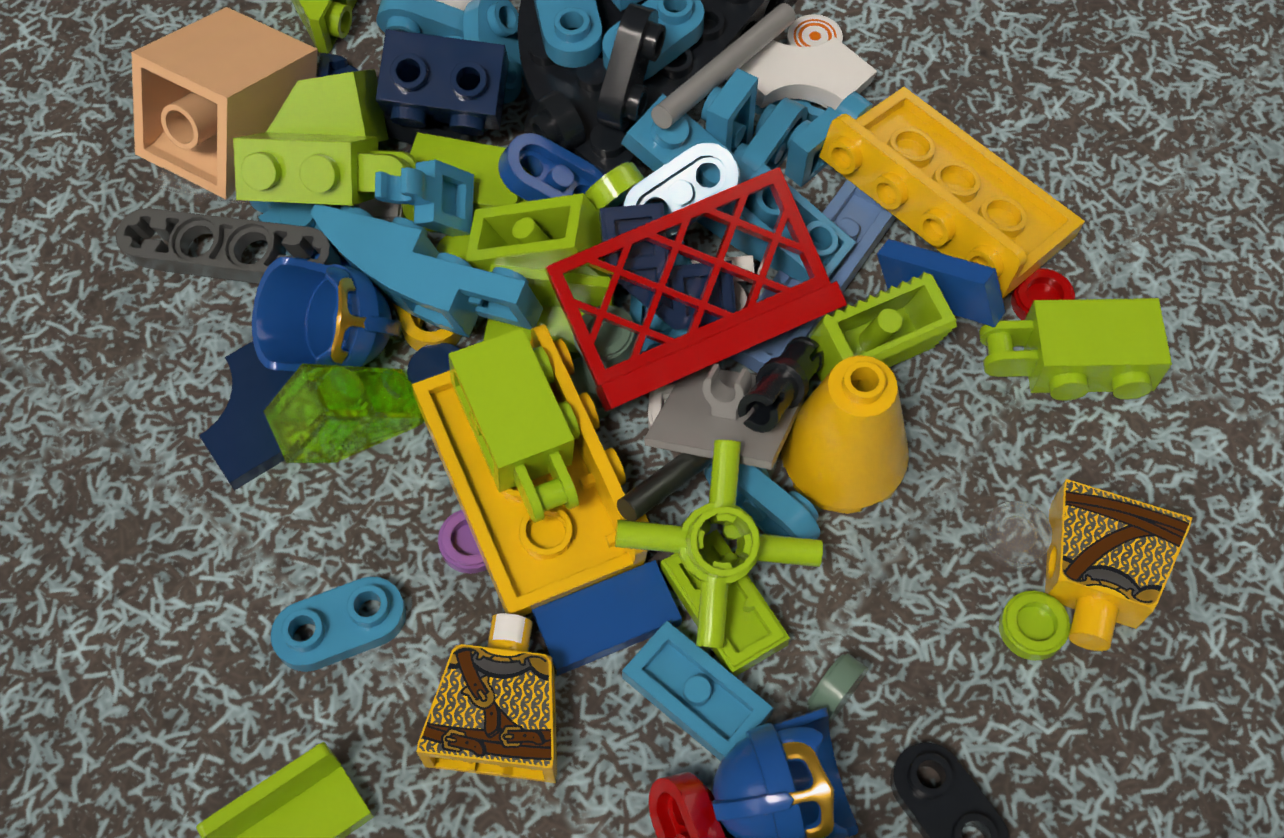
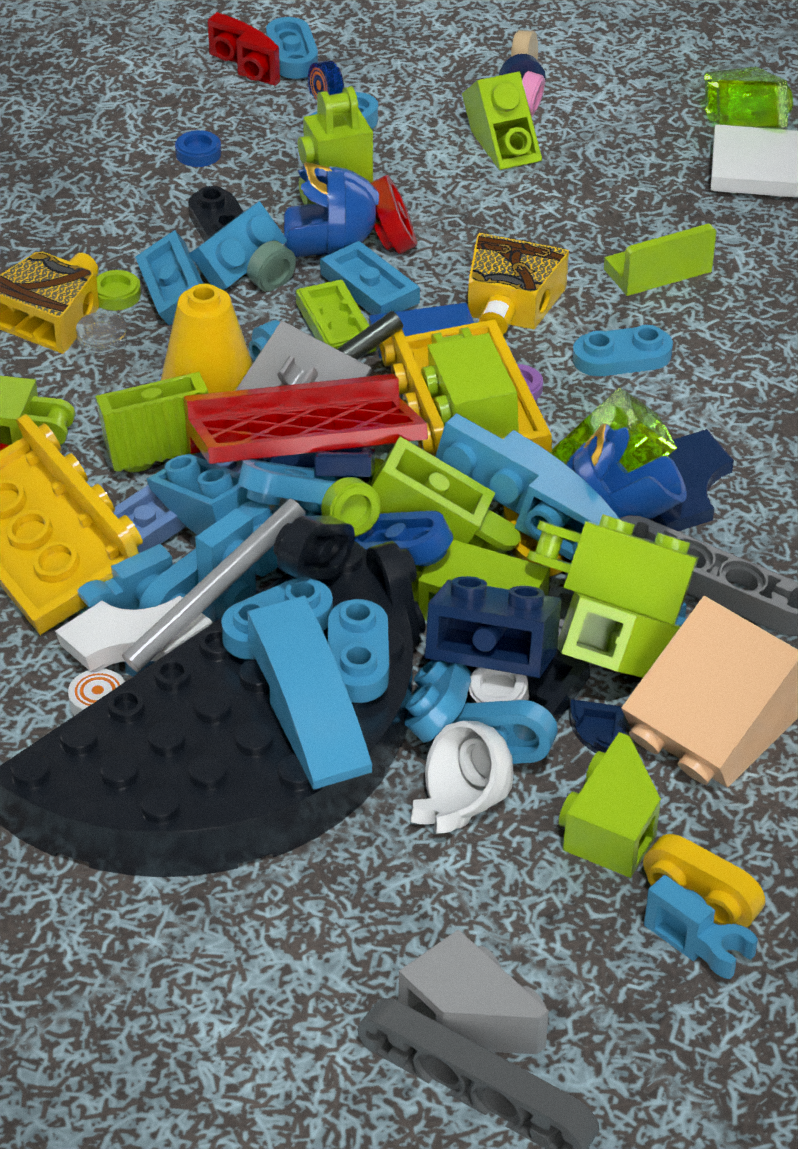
camera: 170 degrees left, 20 degrees down
(438, 192) = (512, 521): dark azure plate -> none
(737, 524) = (332, 302): lime bar -> none
(781, 384) = (262, 361): black pin -> none
(897, 725) = (228, 252): none -> dark azure plate
(965, 639) = (168, 273): none -> dark azure plate
(967, 286) = (82, 439): blue tile -> none

